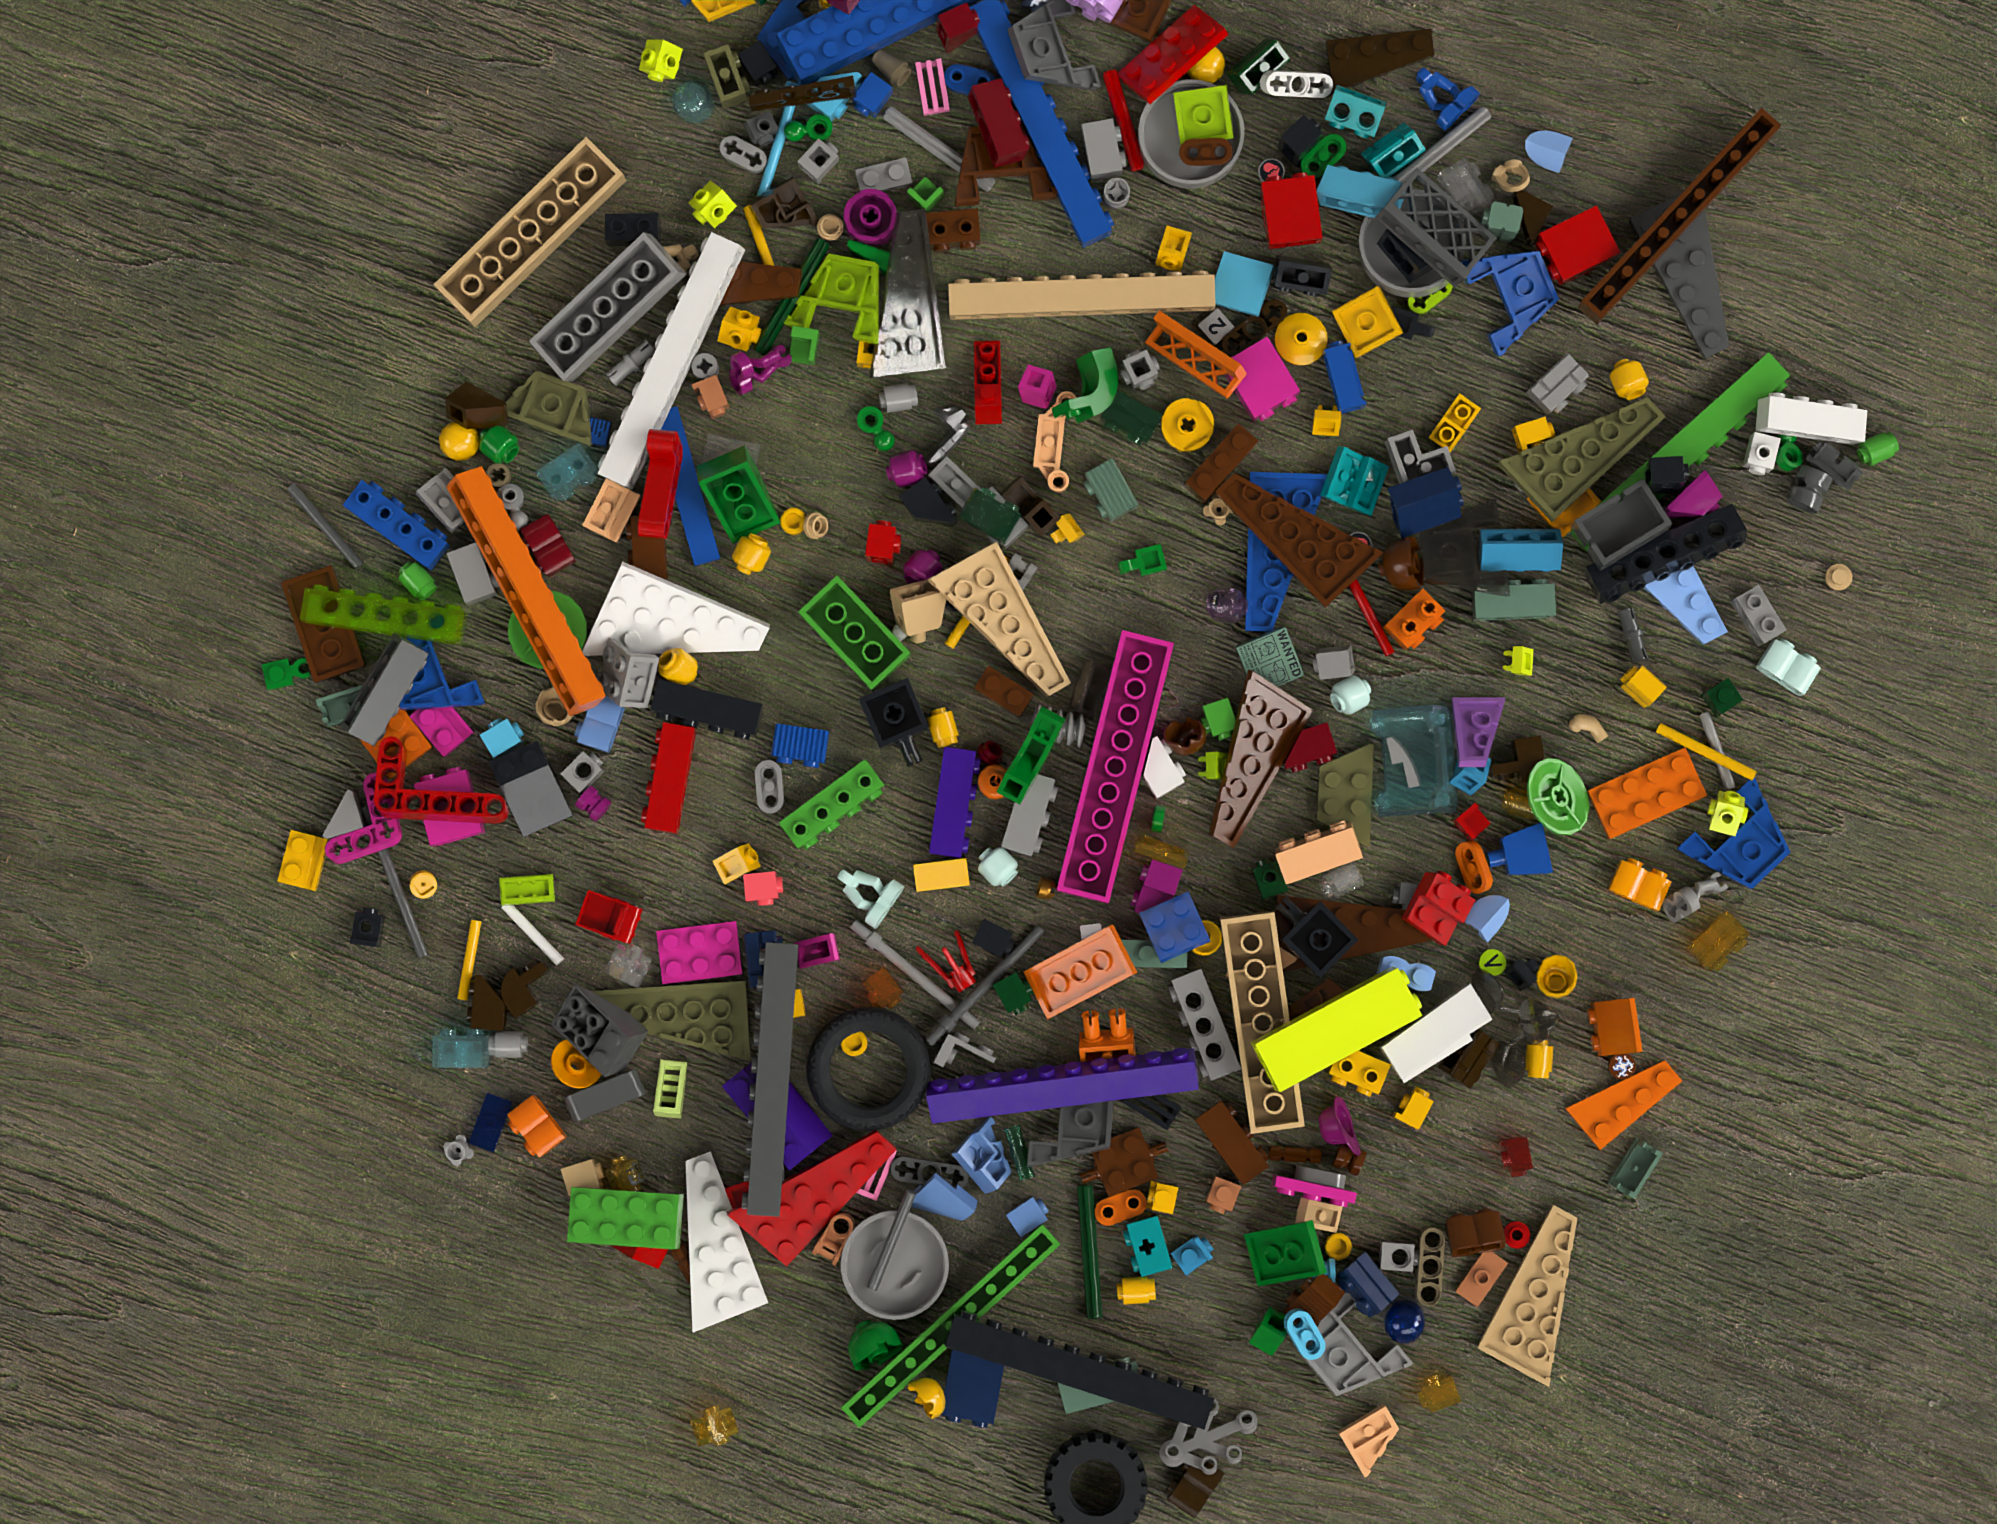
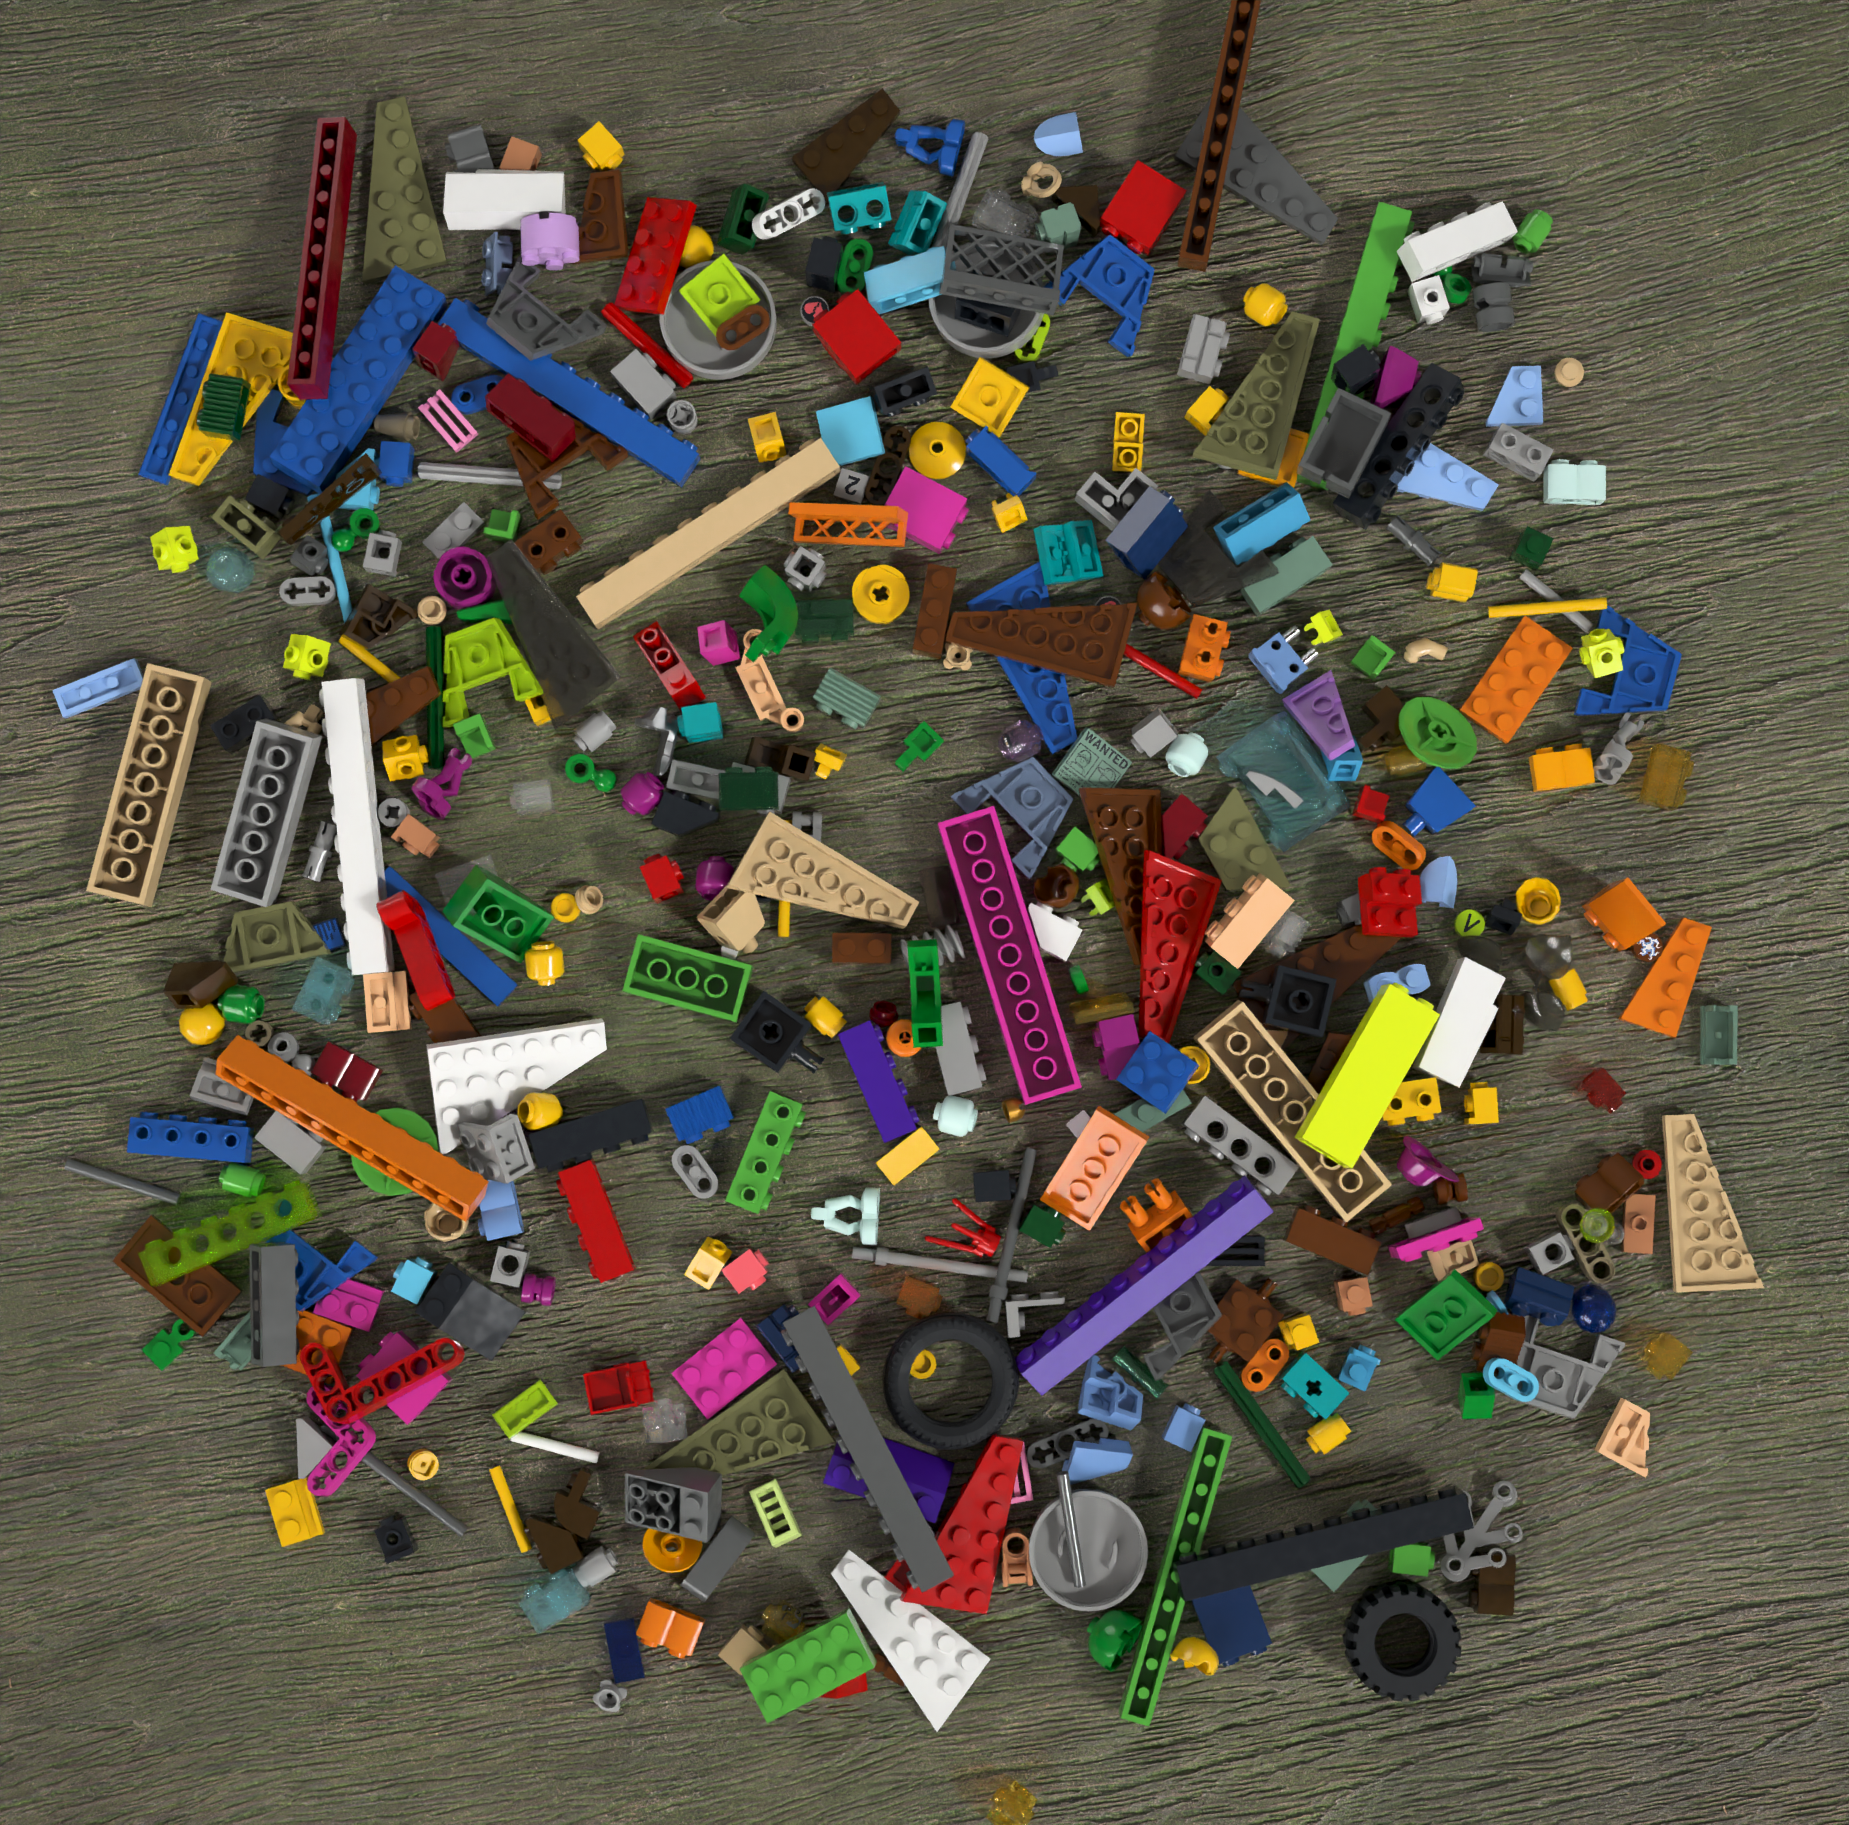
camera: 40 degrees left, 0 degrees up
(537, 133) = (99, 688): none -> light blue plate
(820, 420) = (532, 797): none -> clear brick
(985, 440) = (700, 722): none -> teal brick
(1142, 1426) = (1412, 1559): none -> bright green brick
(1206, 655) = (1031, 801): none -> sand blue wing
(1257, 822) = (1174, 923): none -> red wing
(1447, 1257) = (1599, 1226): none -> clear piece
(1464, 666) = (1275, 663): none -> medium blue piece
(1543, 707) = (1372, 657): none -> bright green panel
(1785, 574) = (1519, 399): none -> light blue wing

